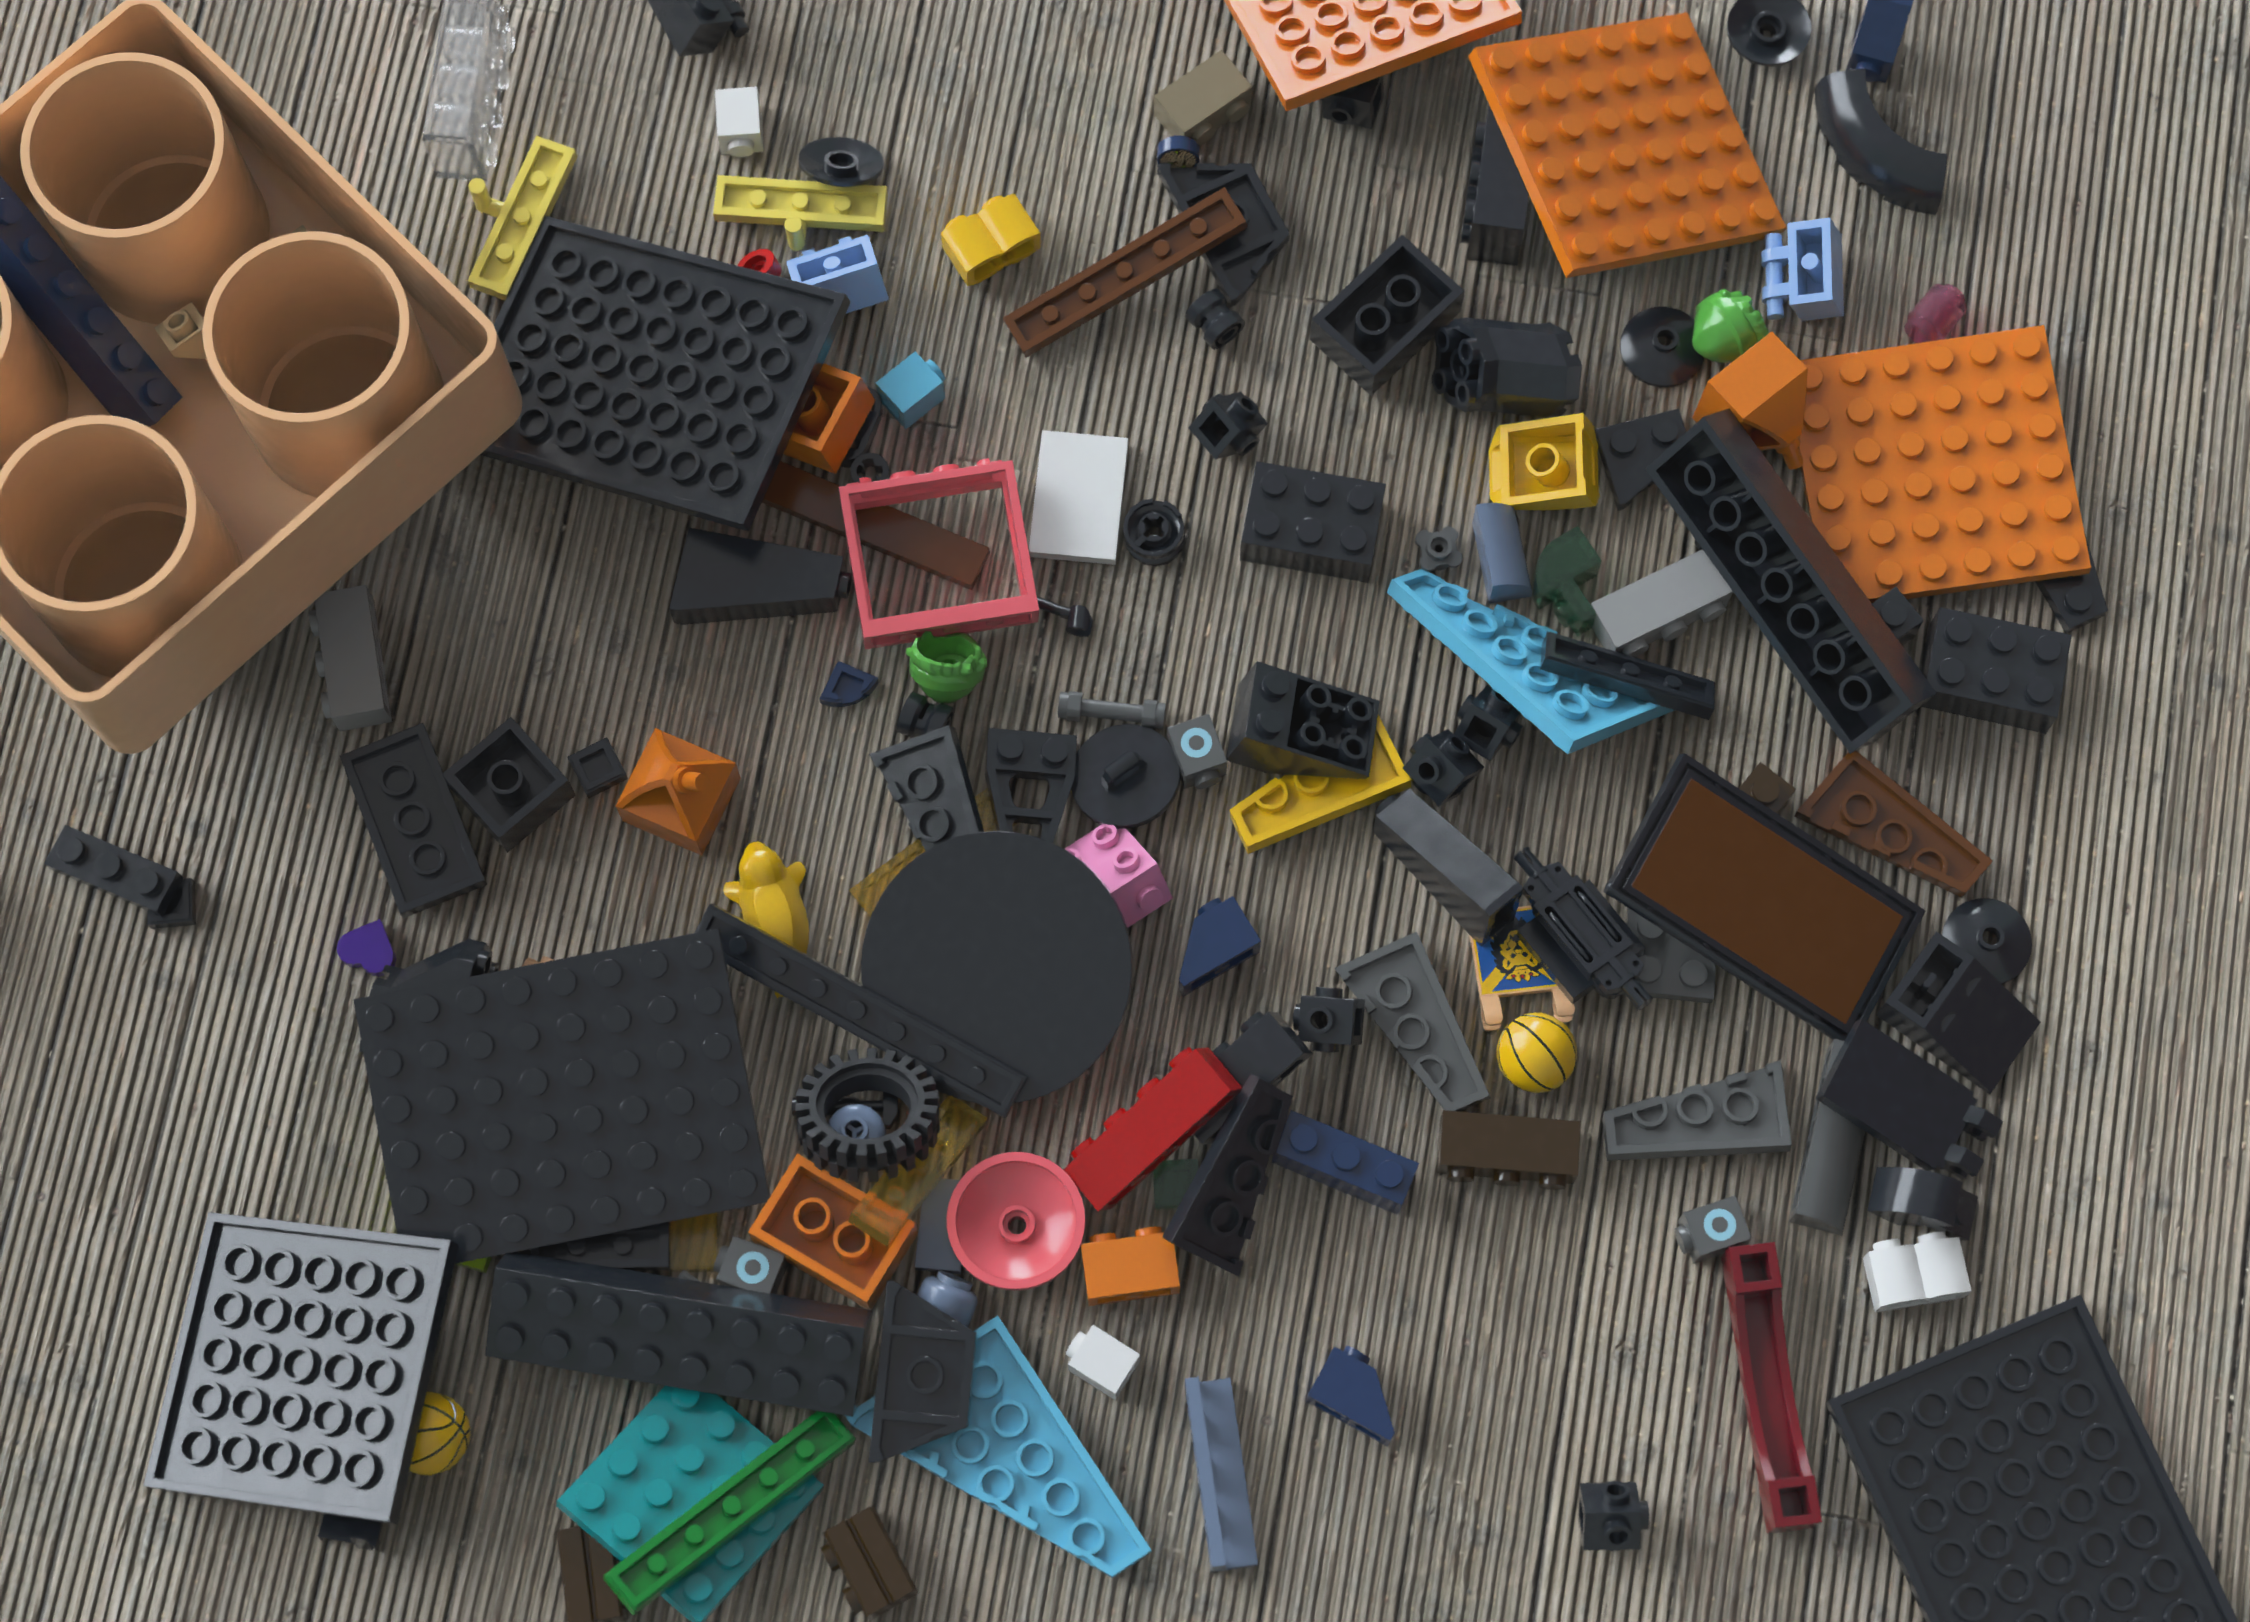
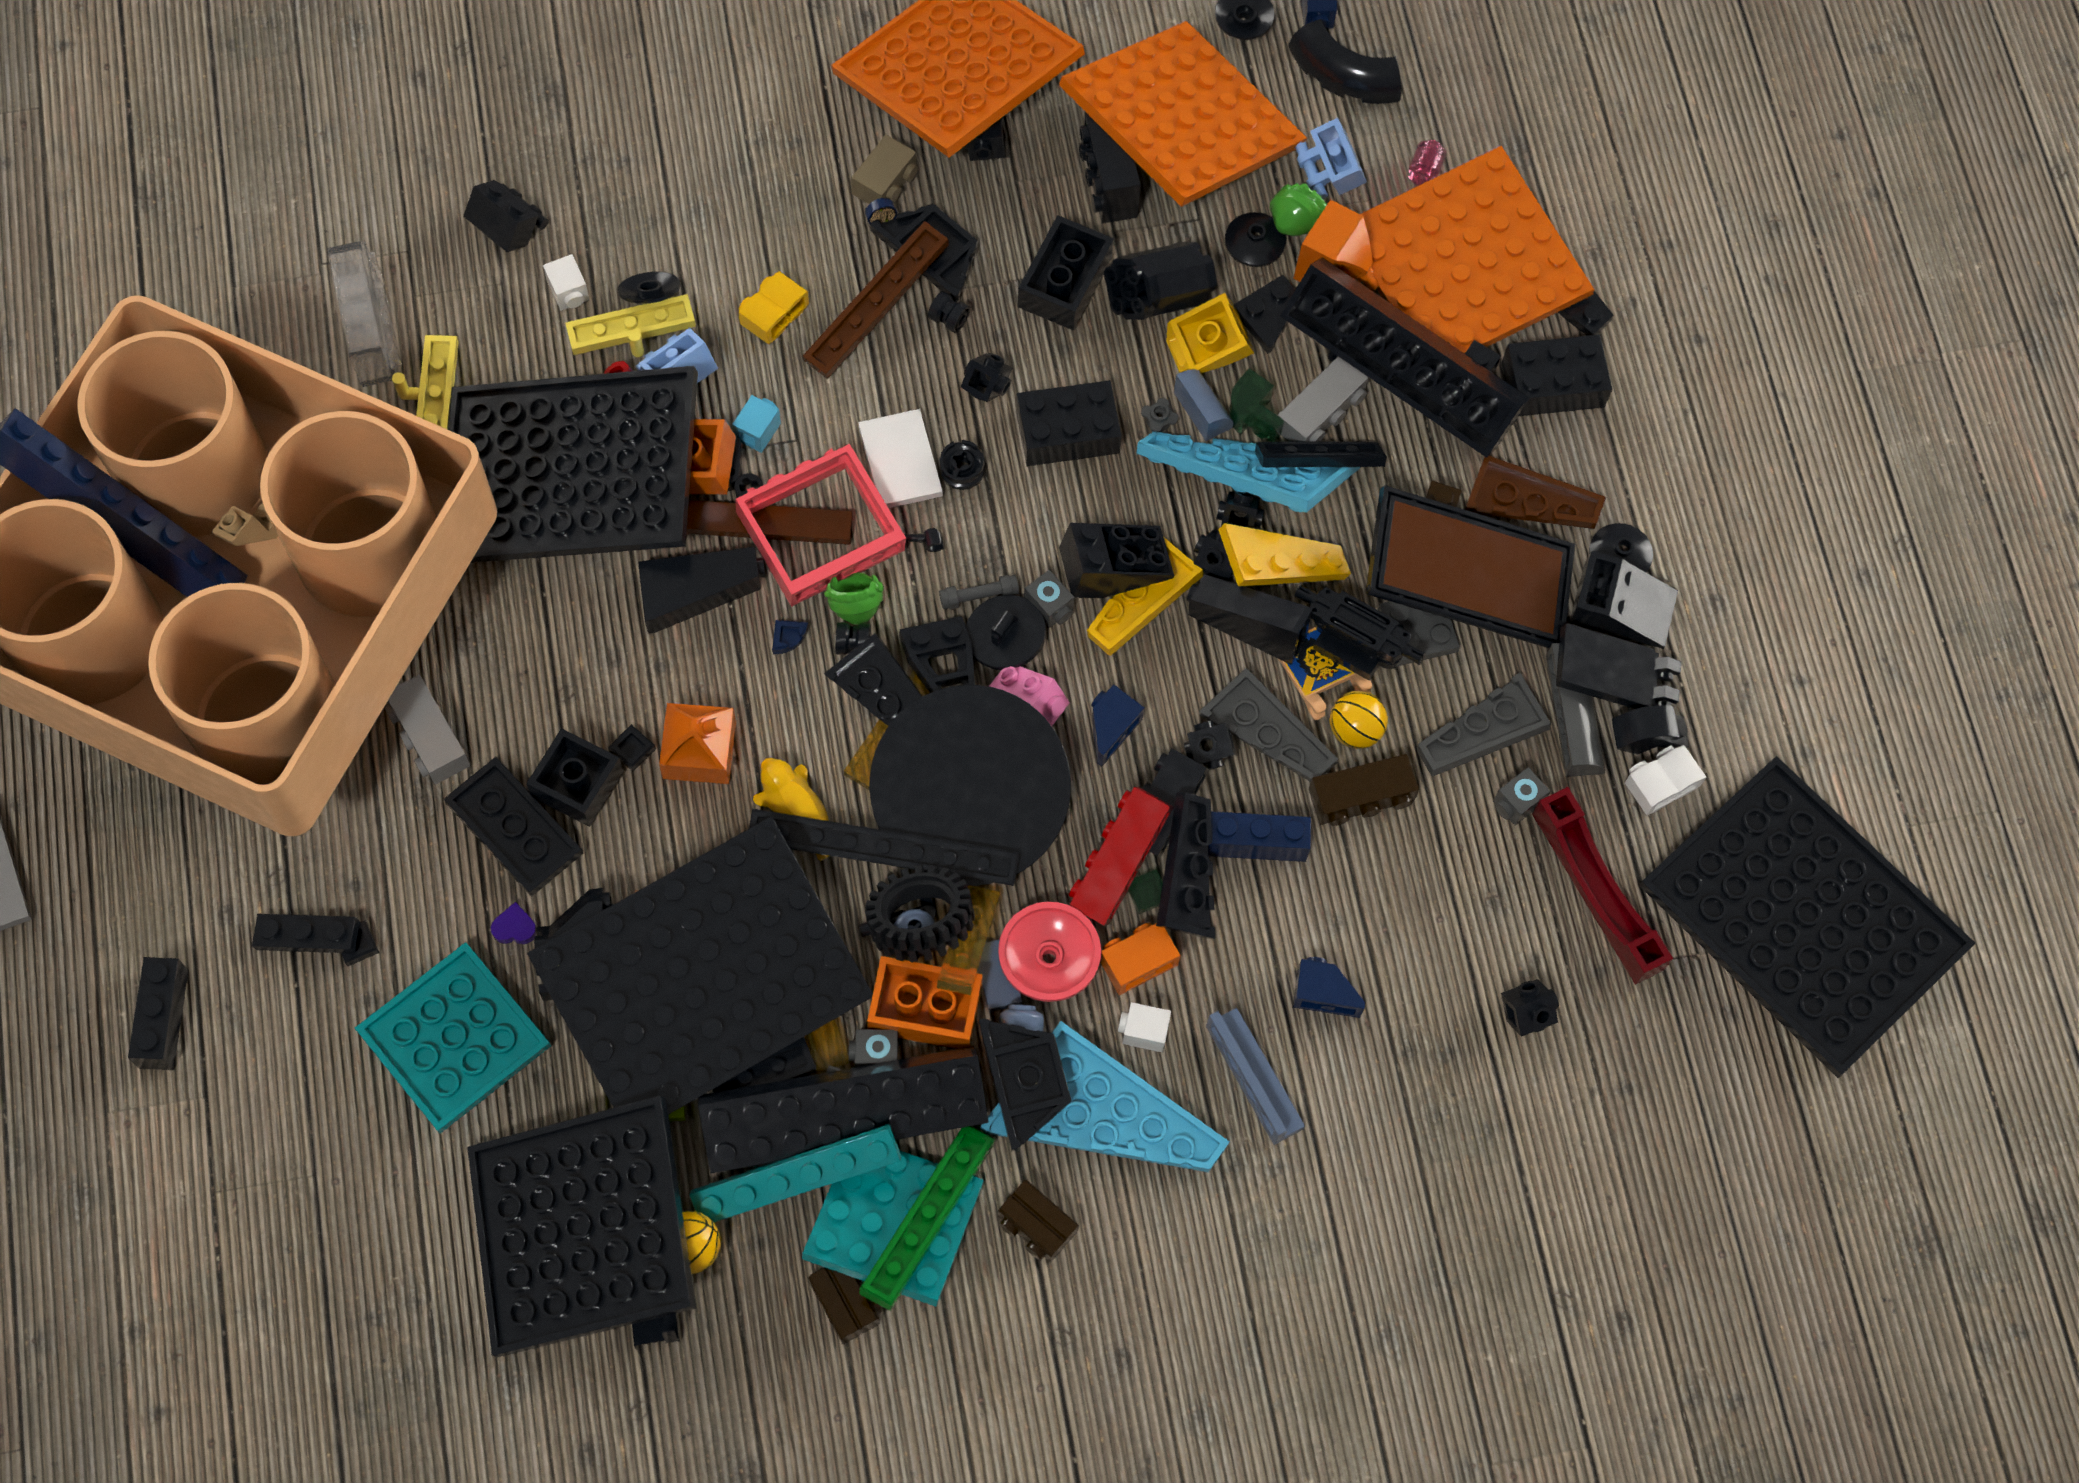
camera: 25 degrees left, 5 degrees down
(242, 1066) = (453, 1037): none -> teal plate
(590, 1396) = (797, 1174): none -> teal plate
(1510, 799) = (1277, 558): none -> yellow wing

